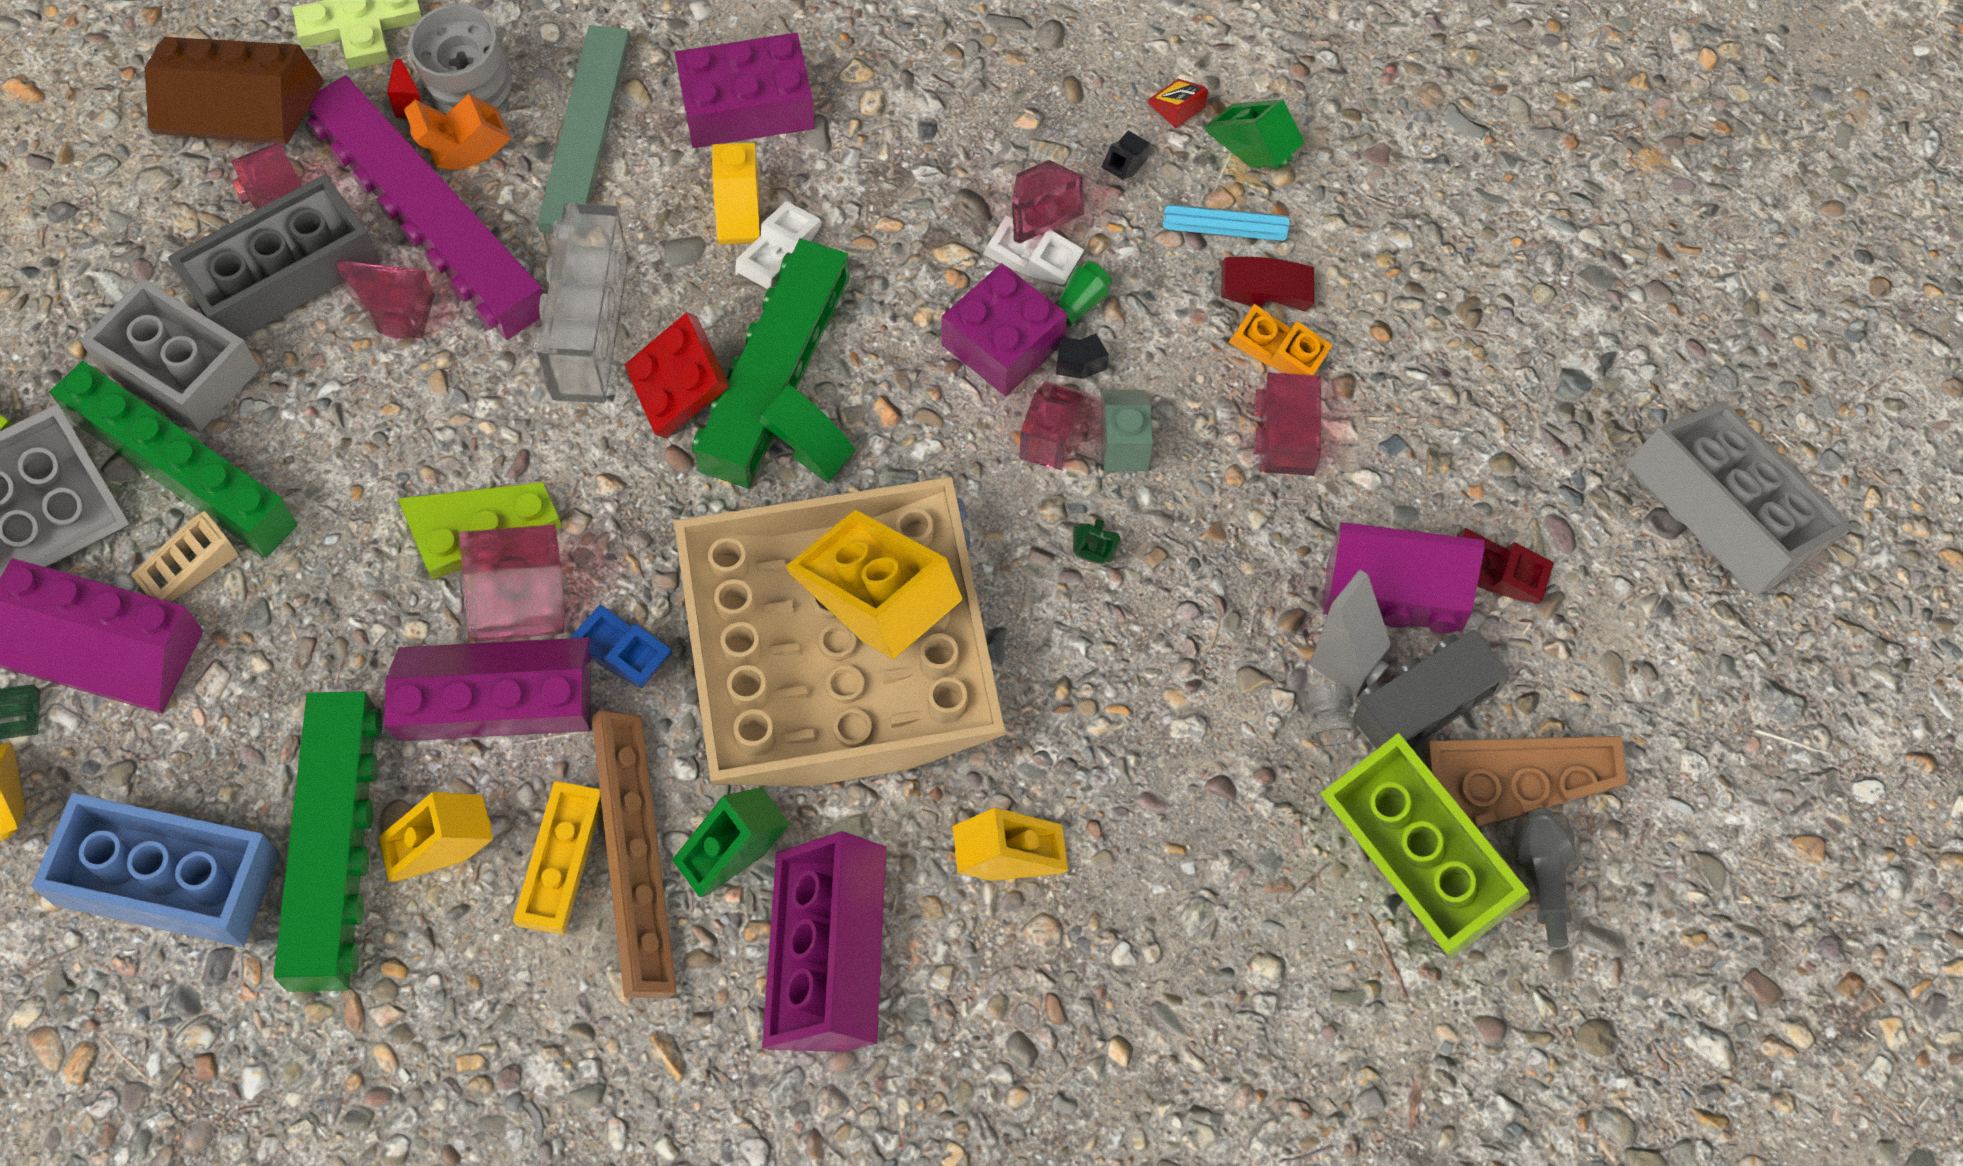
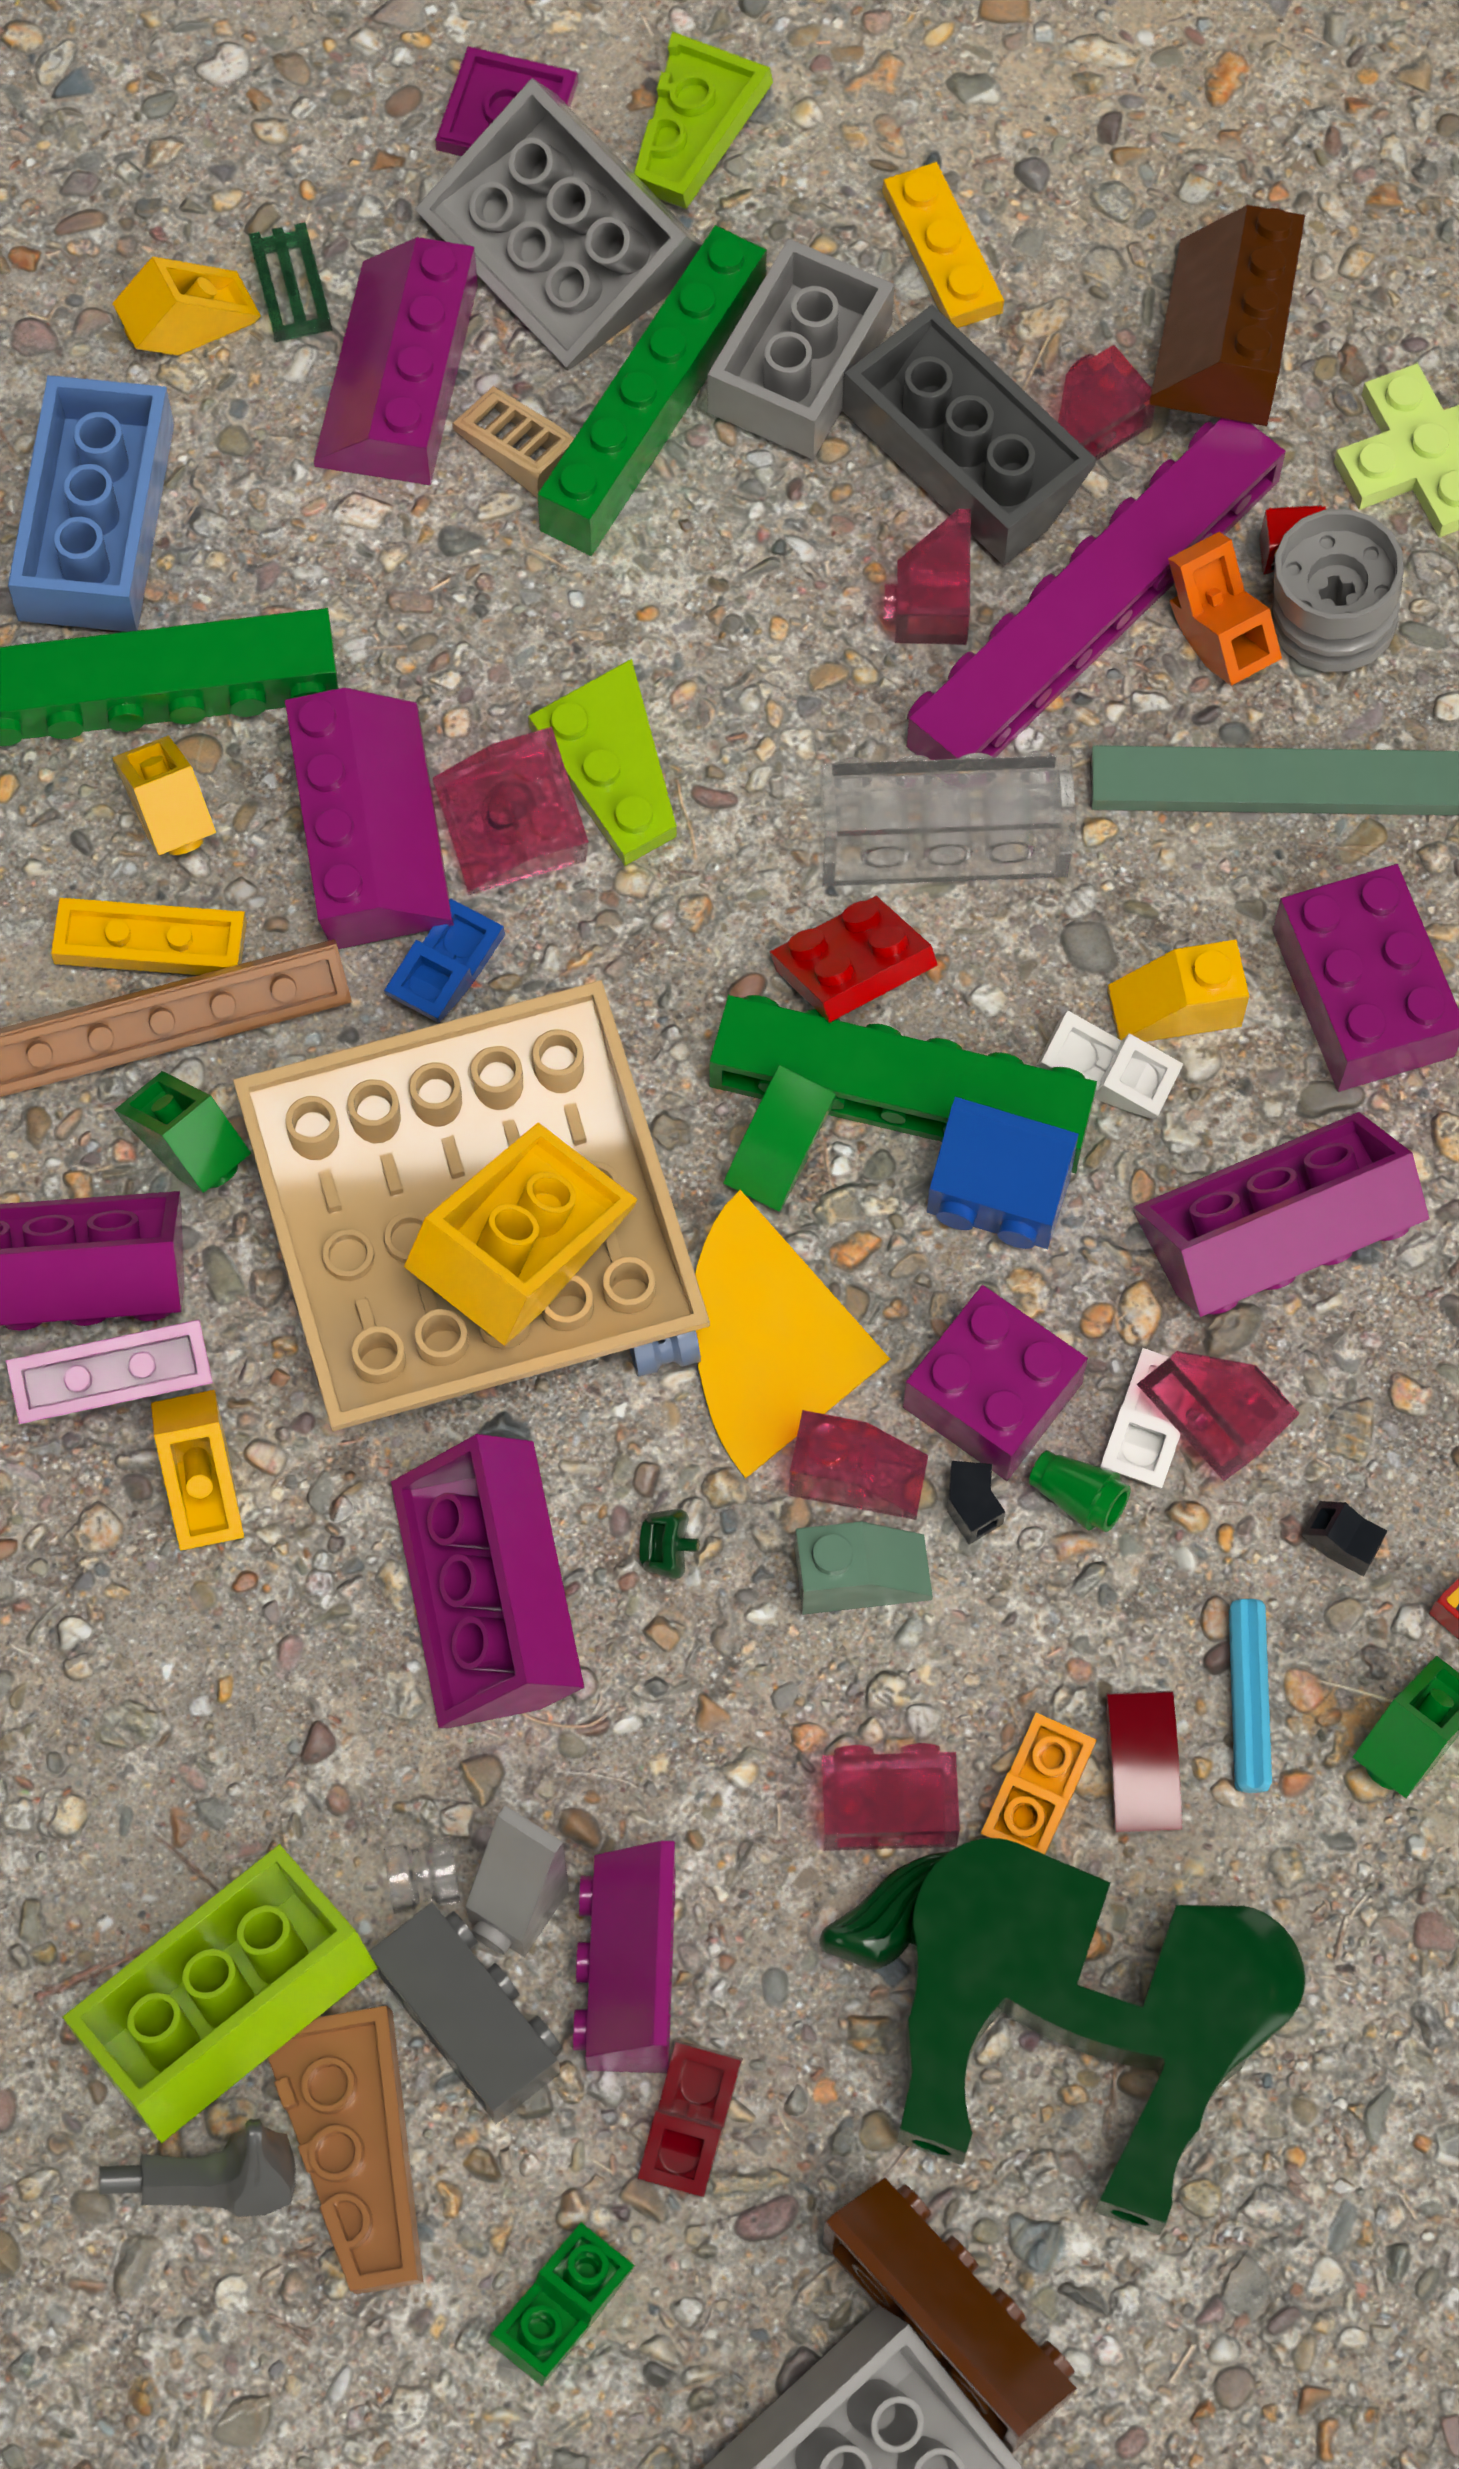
camera: 85 degrees right, 5 degrees up
(103, 269) = (943, 245): none -> yellow plate
(857, 302) = (1001, 1174): none -> blue slope
(901, 159) = (1283, 1213): none -> magenta slope
(931, 901) = (109, 1371): none -> brick
(954, 446) = (772, 1337): none -> yellow sticker
(1118, 657) = (486, 1582): none -> magenta slope
(1396, 355) = (1010, 1936): none -> dark green animal
(1611, 435) = (932, 2288): none -> reddish brown slope
(1620, 655) = (561, 2304): none -> green slope

